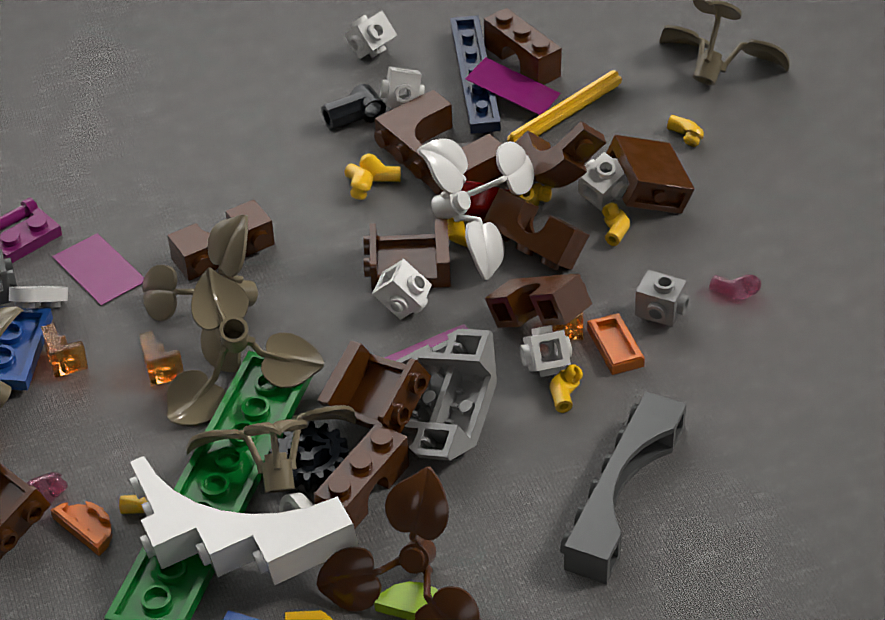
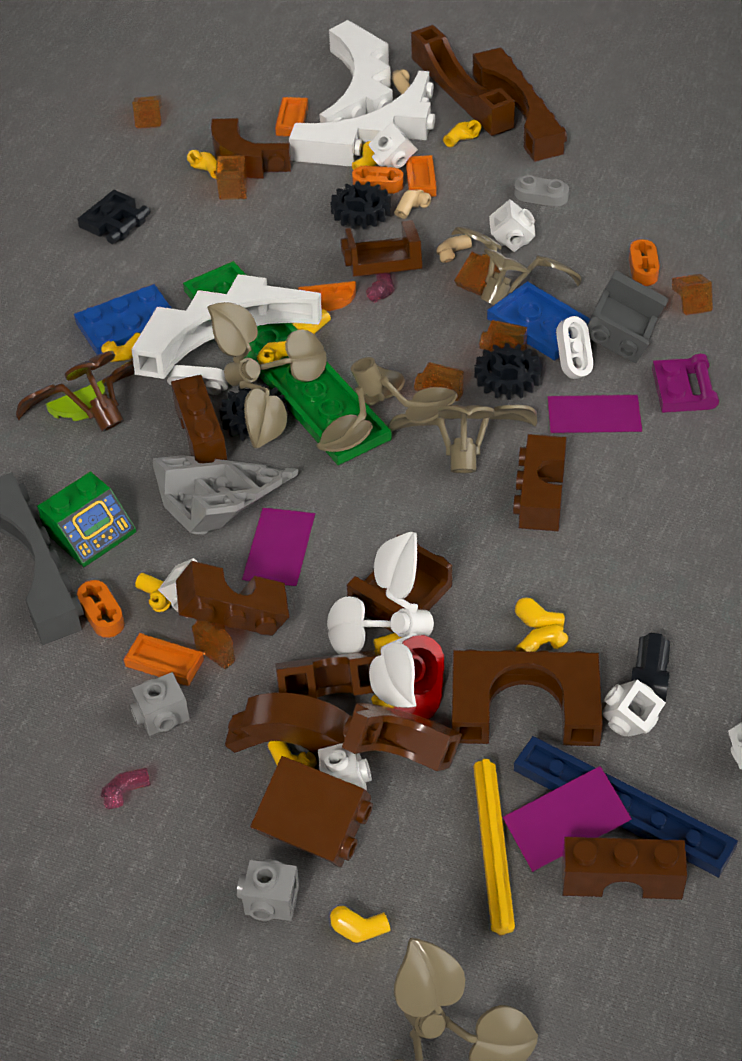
camera: 130 degrees right, 5 degrees up
(101, 326) = (507, 371): none -> black gear
(235, 477) = (272, 352): none -> yellow arm
(375, 387) = (258, 463): reddish brown panel -> none
(402, 289) = (354, 545): white brick -> none
(547, 483) = (86, 519): none -> slope
(606, 219) = (287, 719): none -> reddish brown arch
(609, 407) = (94, 611): none -> orange beam
(719, 162) = (269, 890): none -> light grey brick

